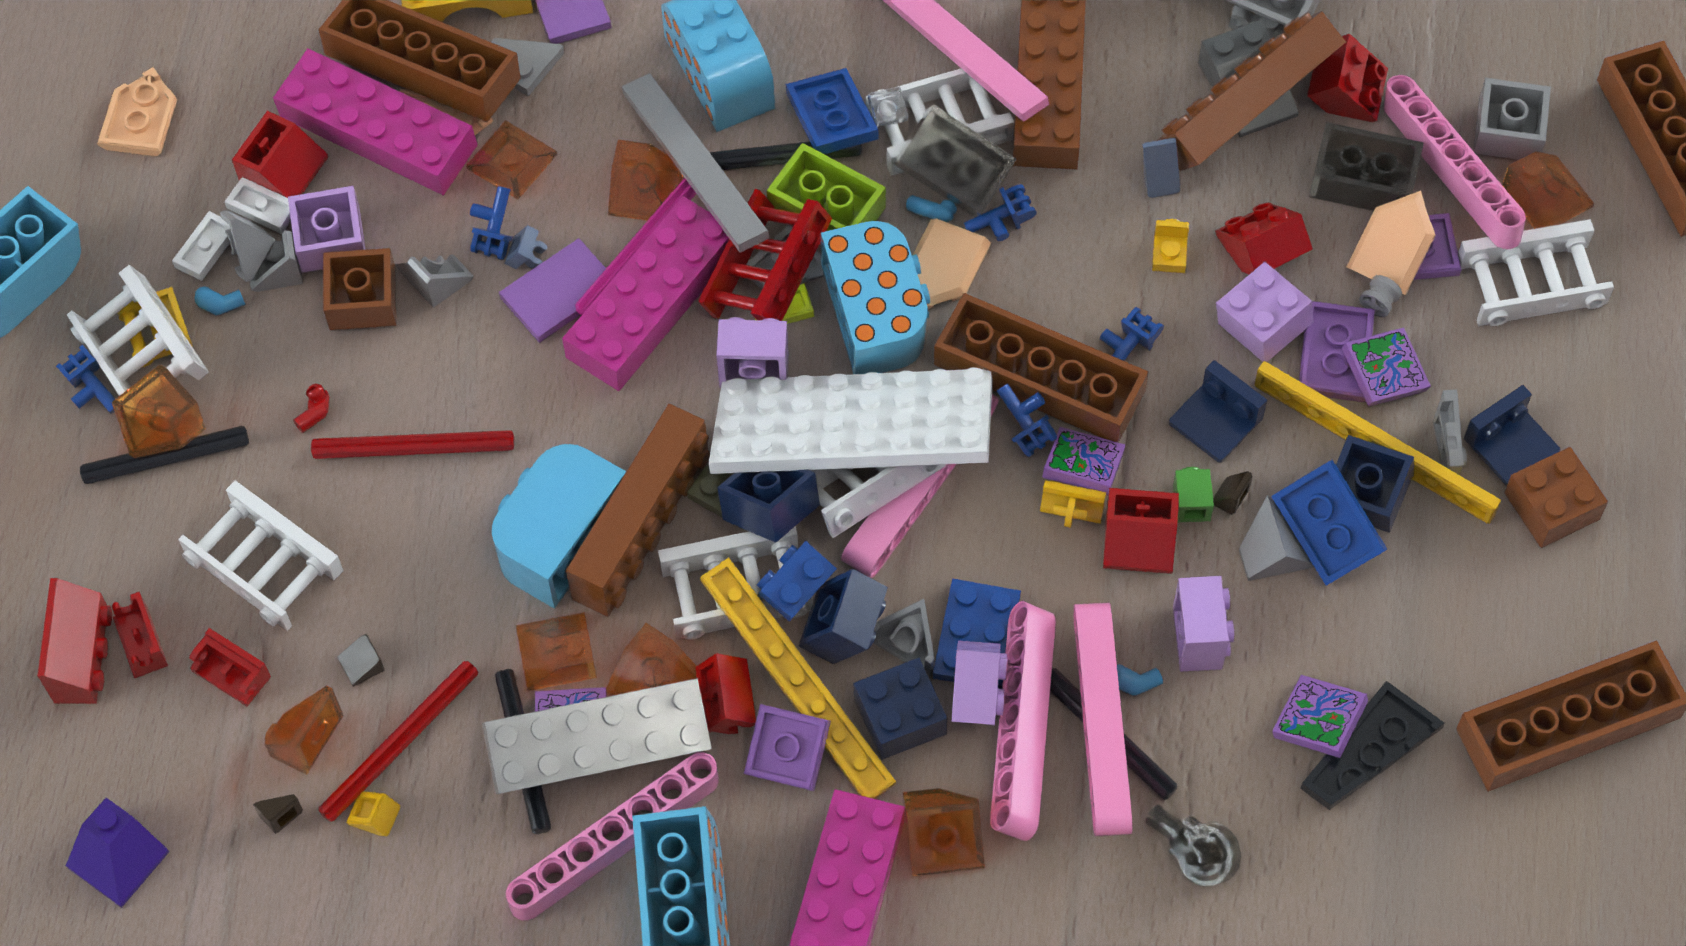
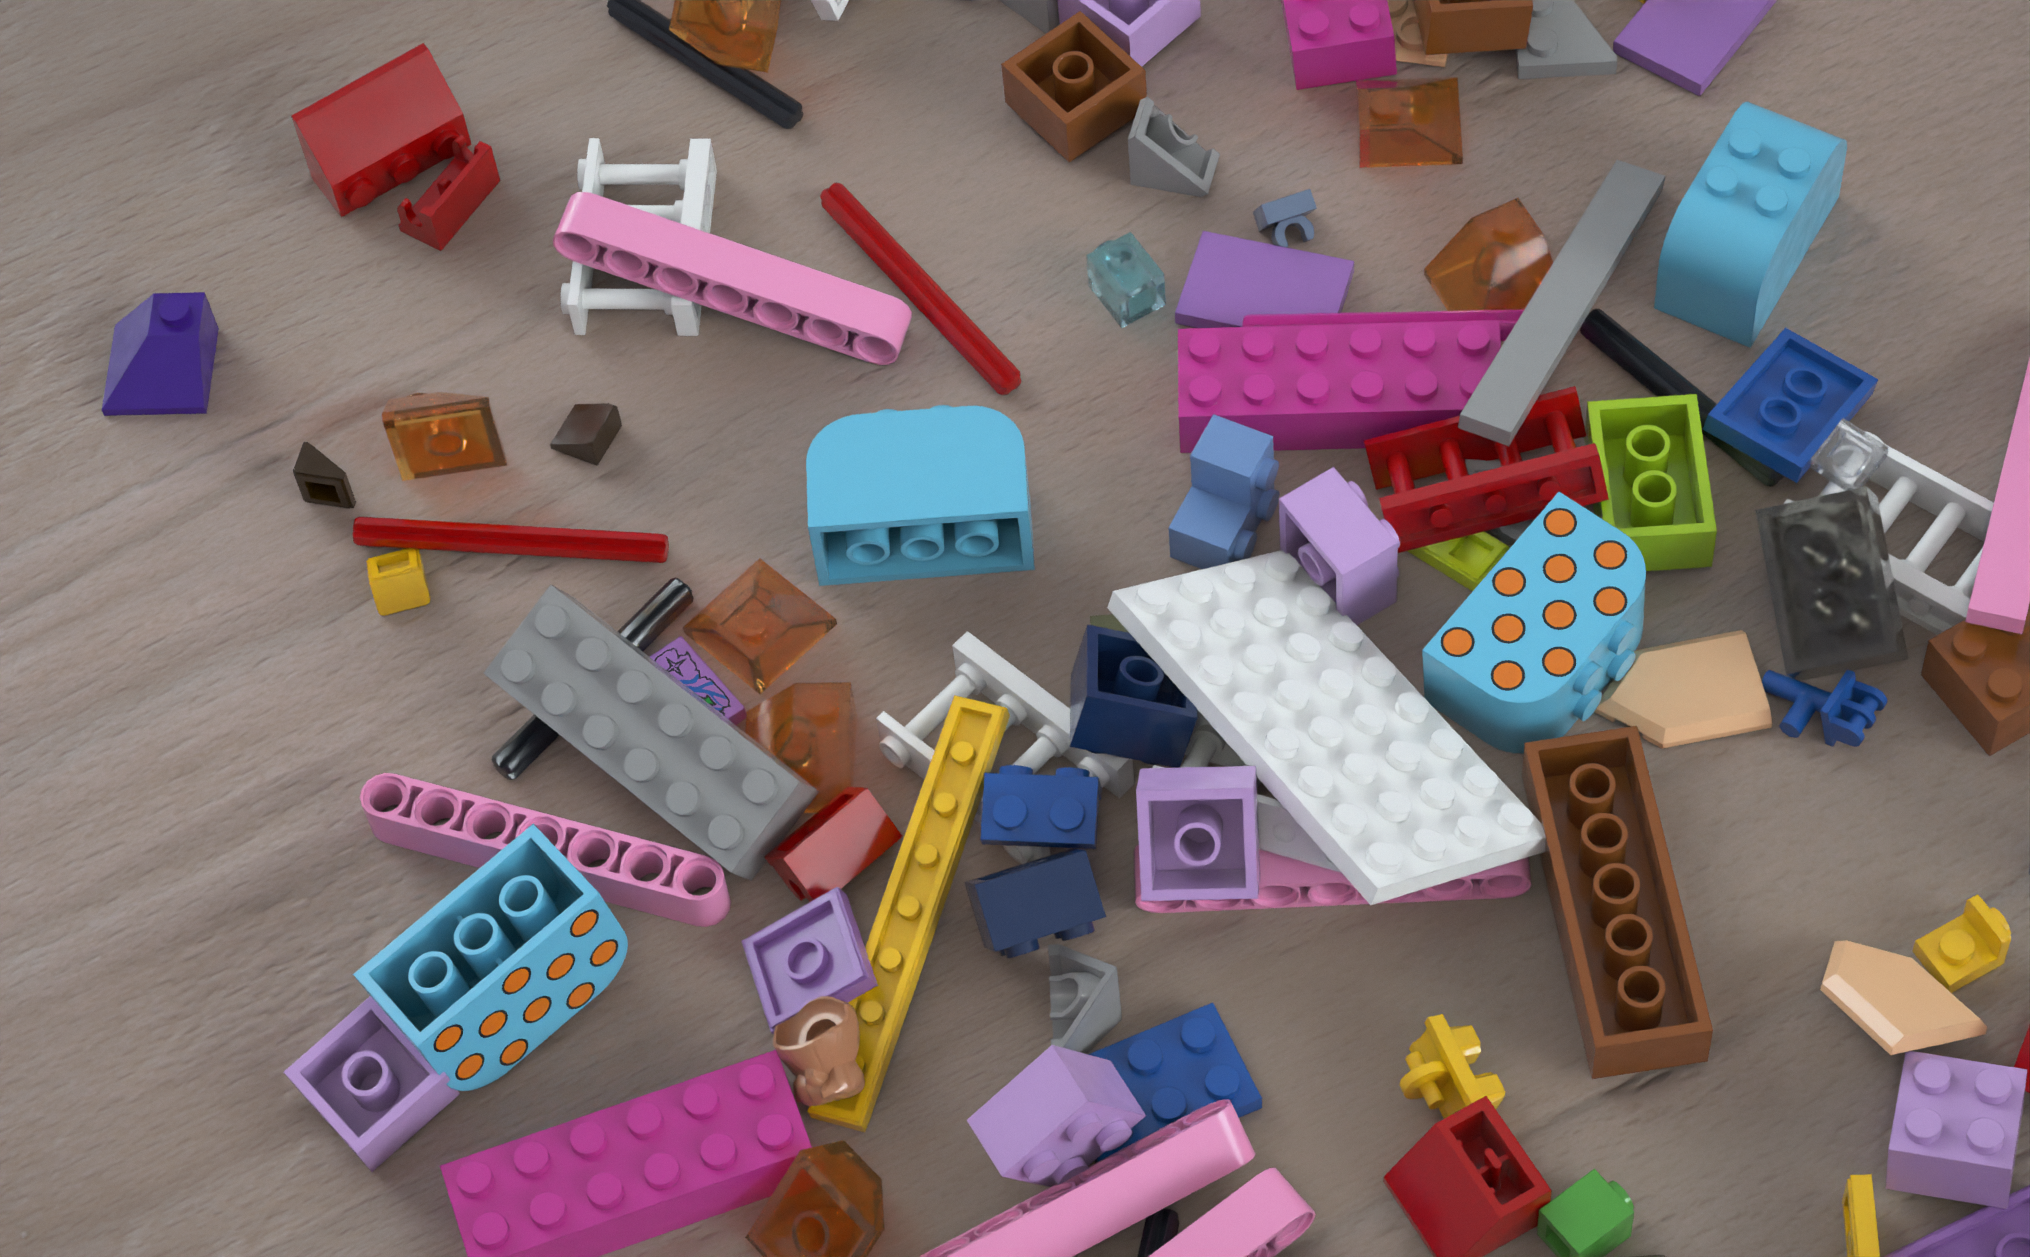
camera: 60 degrees right, 5 degrees down
(229, 667) = (476, 306): red hinge -> none
(317, 408) = (886, 162): red arm -> none
(340, 525) = (732, 278): none -> bright pink beam
(495, 217) = (1271, 172): blue arm -> none
(498, 345) = (1126, 279): none -> clear light blue brick
(638, 511) = (1000, 570): dark orange brick -> none
(673, 378) = (1228, 495): none -> medium blue brick
(849, 768) = (821, 1051): none -> nougat hair
(880, 513) = (1198, 833): none -> lavender brick
(900, 708) = (960, 1054): dark blue brick -> none
(932, 210) = (1751, 615): dark azure arm -> none
(1021, 414) = (1509, 959): blue arm -> none
(1083, 460) = (1521, 1048): medium lavender tile -> none
(1134, 333) = (1780, 989): blue arm -> none
(1180, 291) = (1895, 999): none -> light nougat tile
(1219, 412) = (1741, 1176): dark blue bracket -> none

